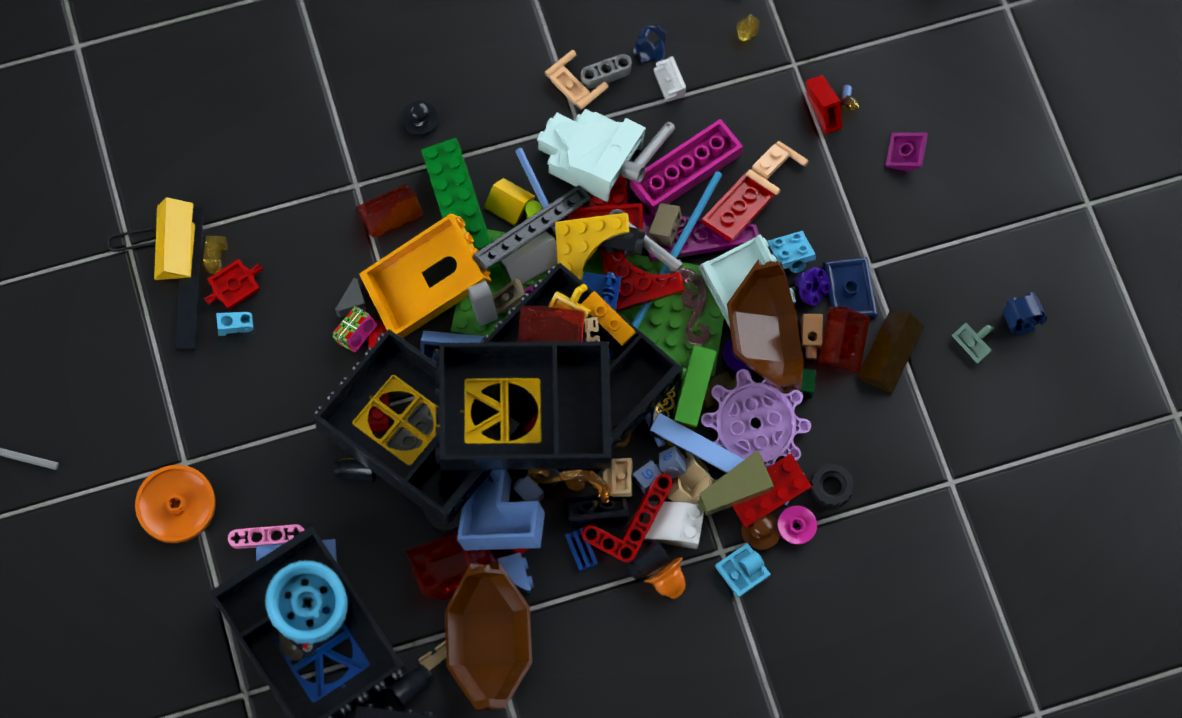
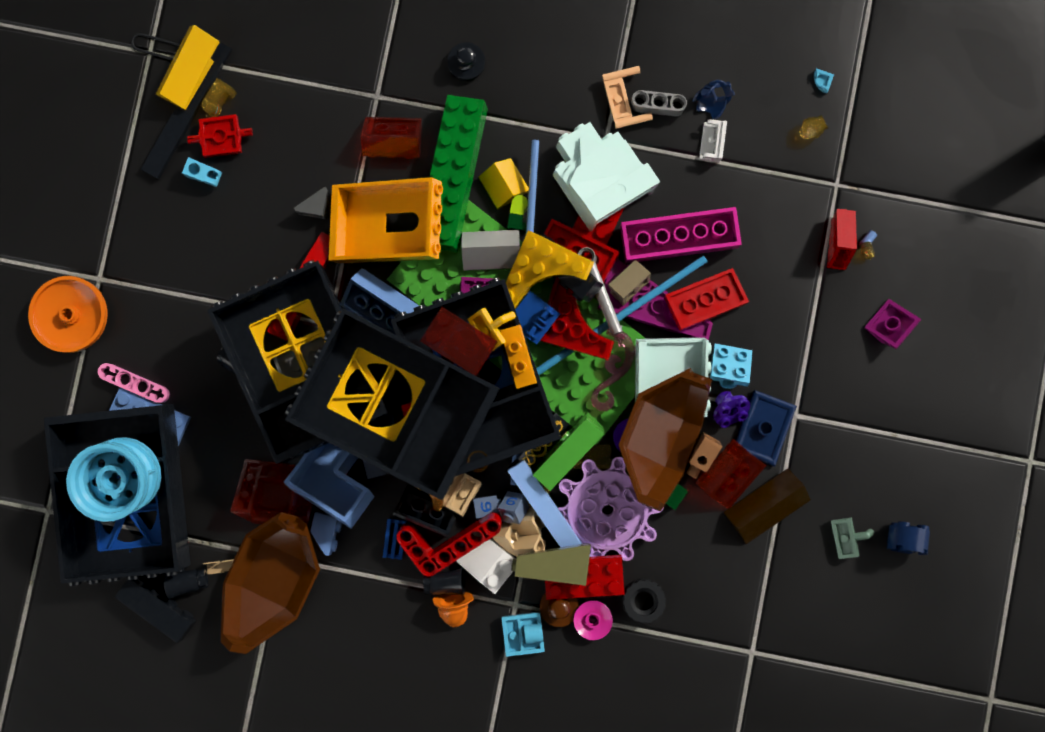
camera: 35 degrees right, 15 degrees up
(354, 329) = (302, 235): piece -> none
(482, 303) = (421, 274): light grey beam -> none
(508, 297) = (449, 280): dark tan slope -> none
(531, 228) = (501, 226): black tile -> none
(590, 327) = (497, 352): tan piece -> none
(636, 169) = (629, 217): light grey piece -> none
(771, 162) = (759, 271): light nougat plate -> none

